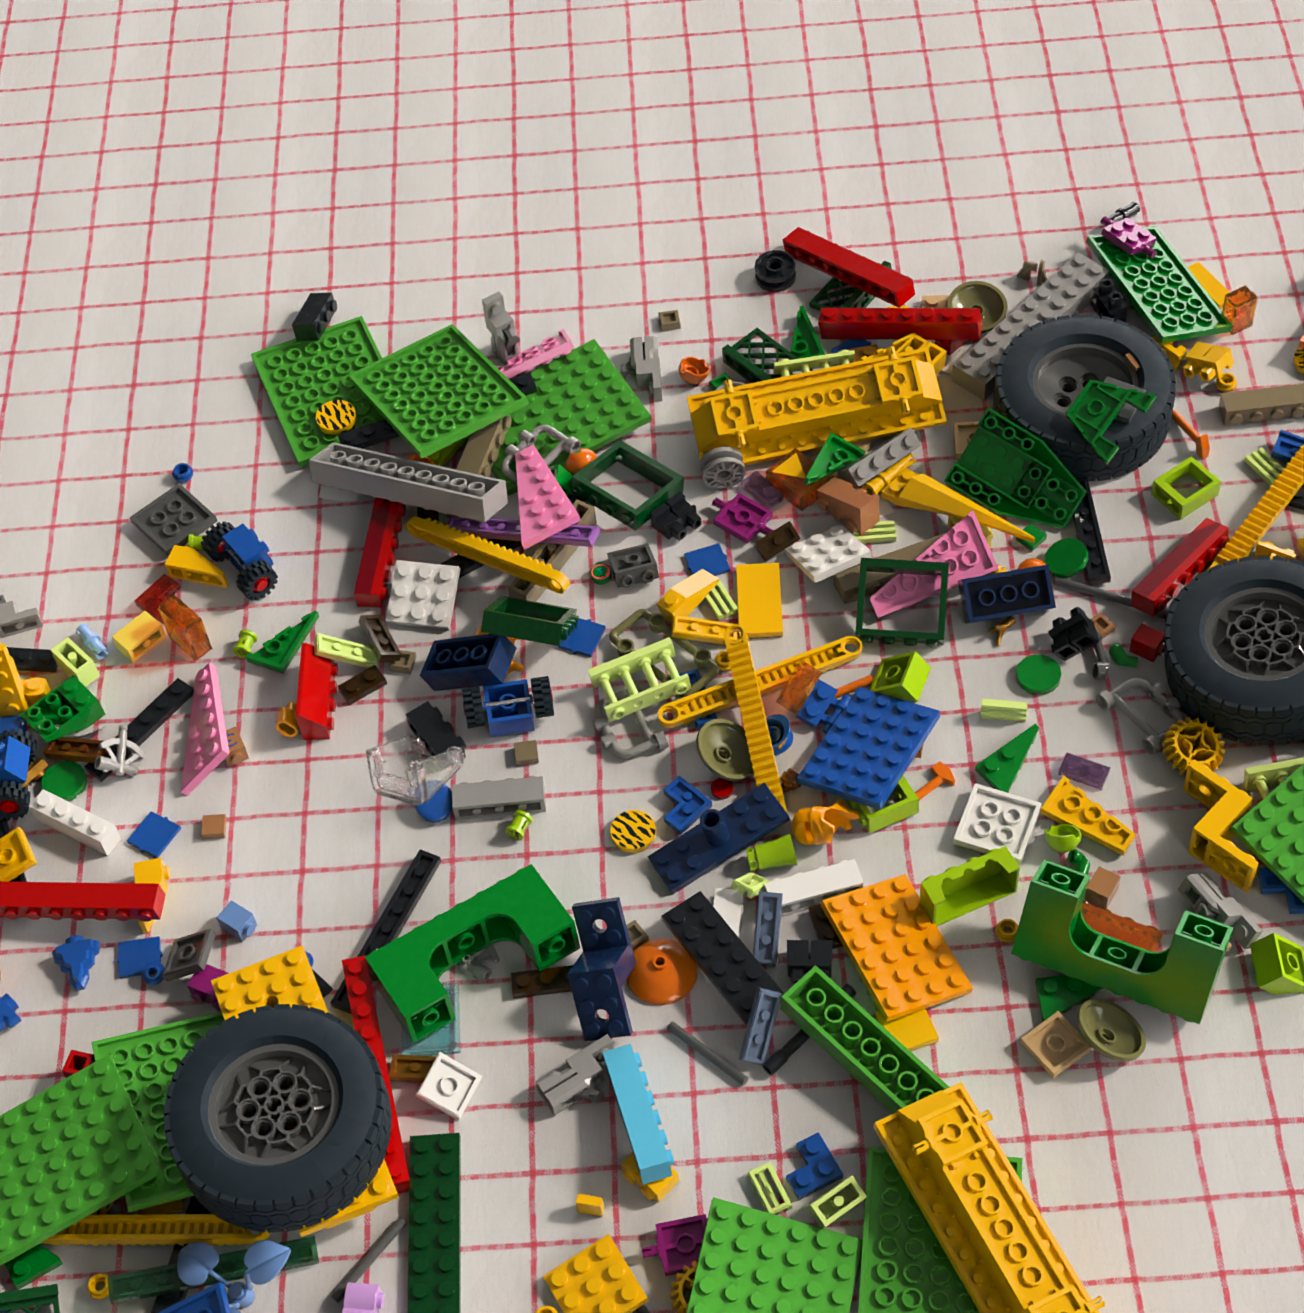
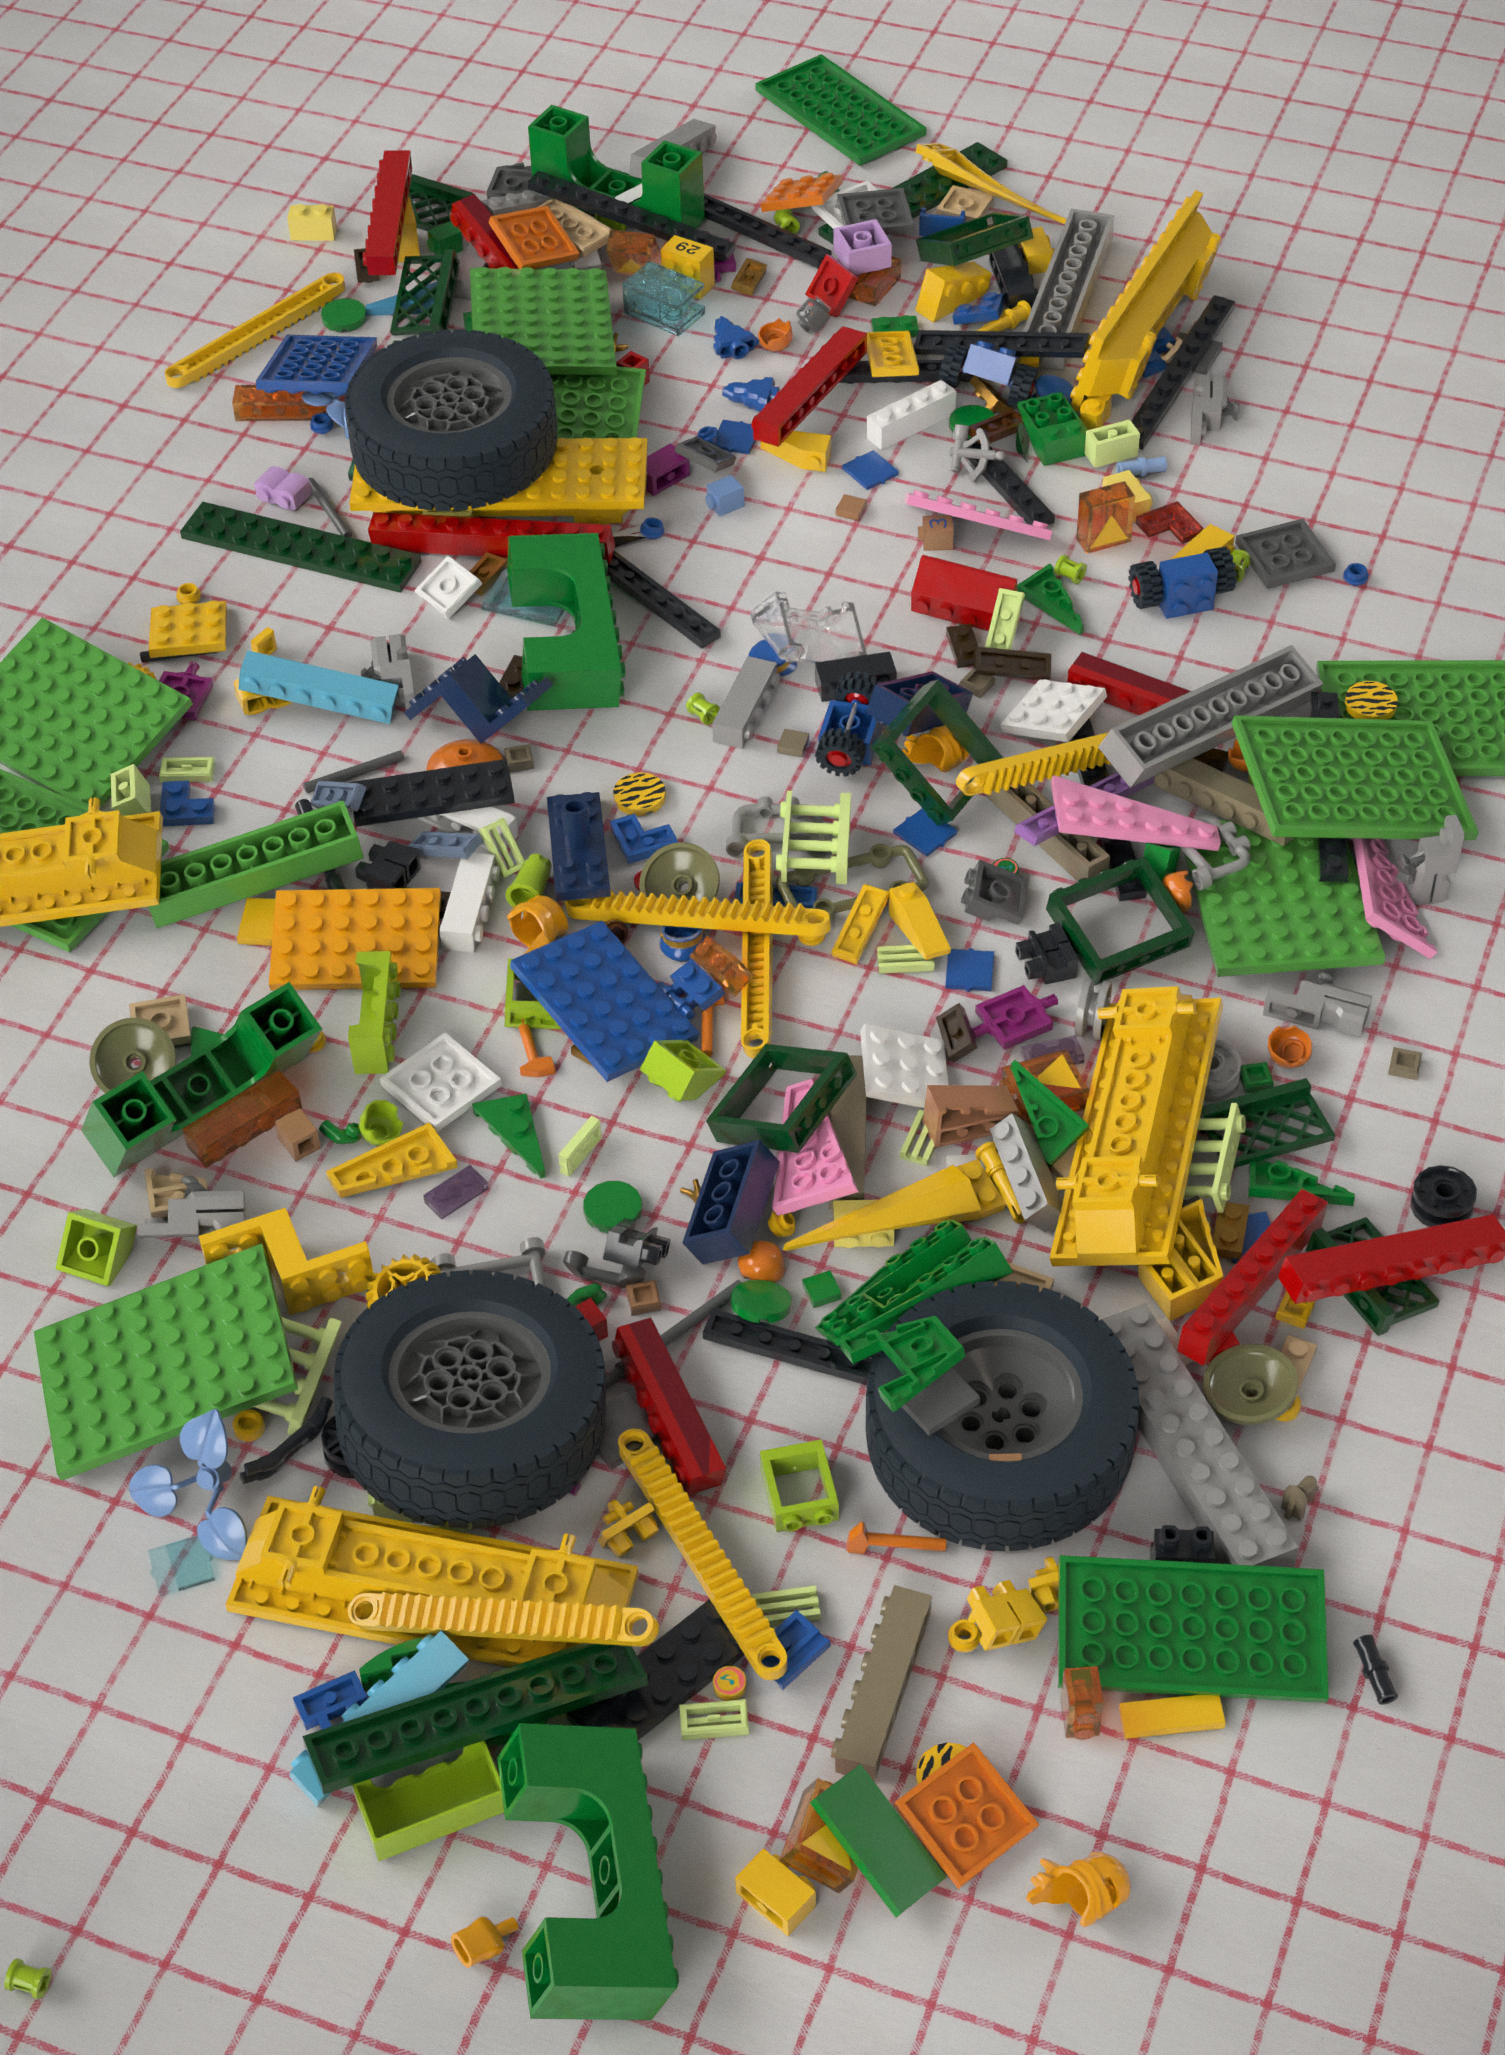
camera: 110 degrees right, 5 degrees down
(759, 599) = (882, 994): yellow tile -> none
(1129, 236) = (1300, 1625): magenta plate -> none

